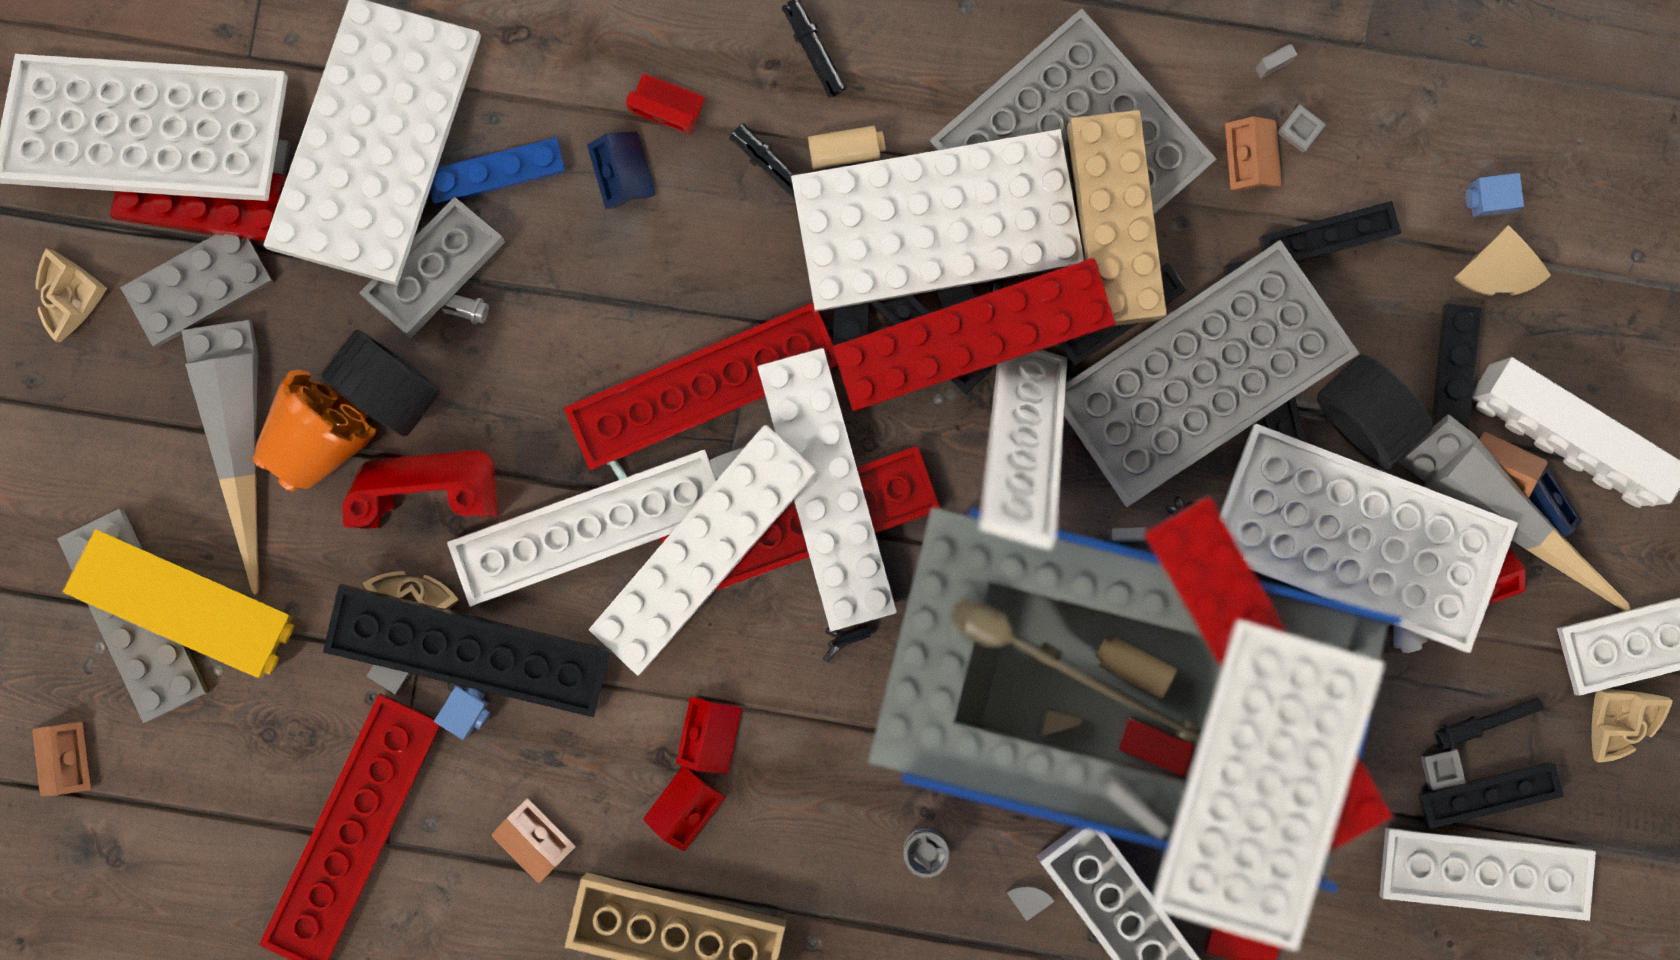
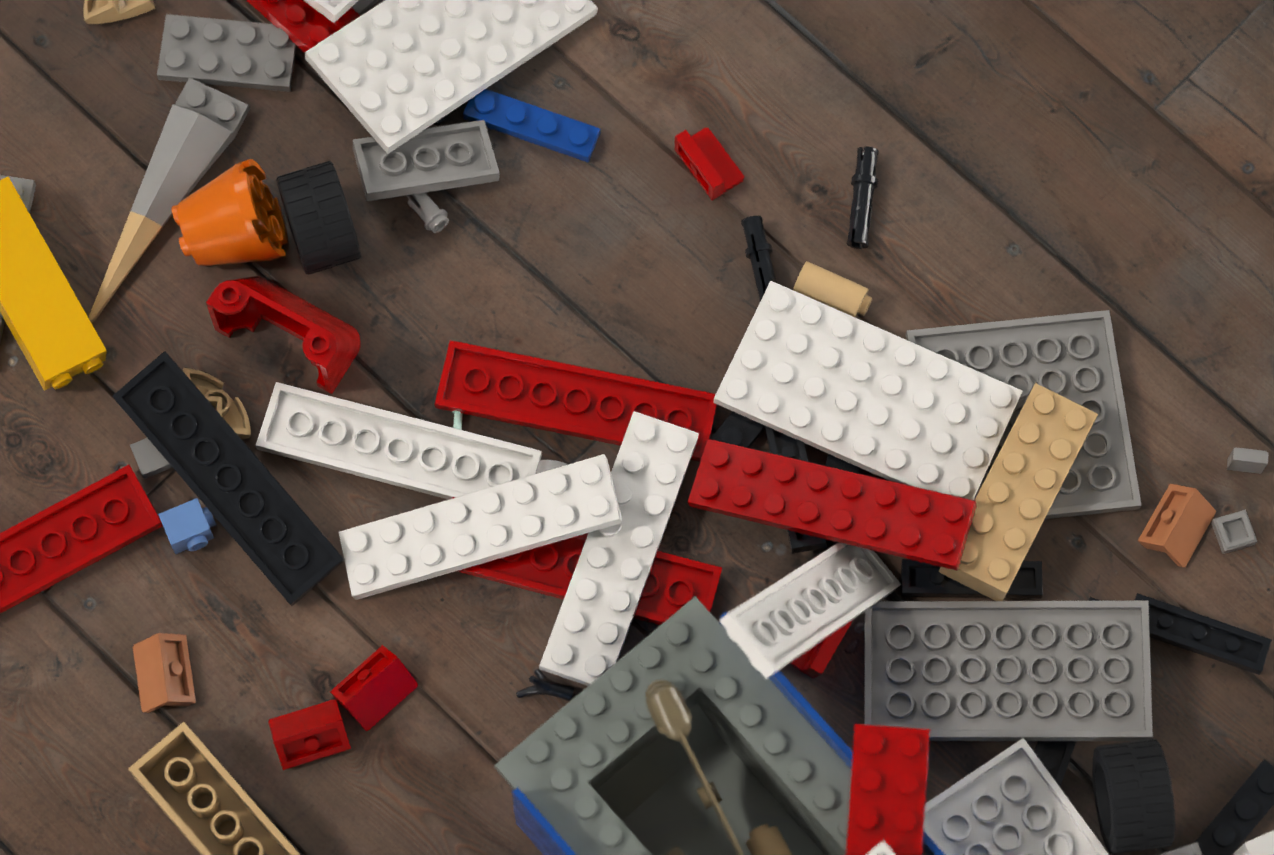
camera: 30 degrees right, 15 degrees down
(620, 168) = (635, 187): dark blue panel -> none

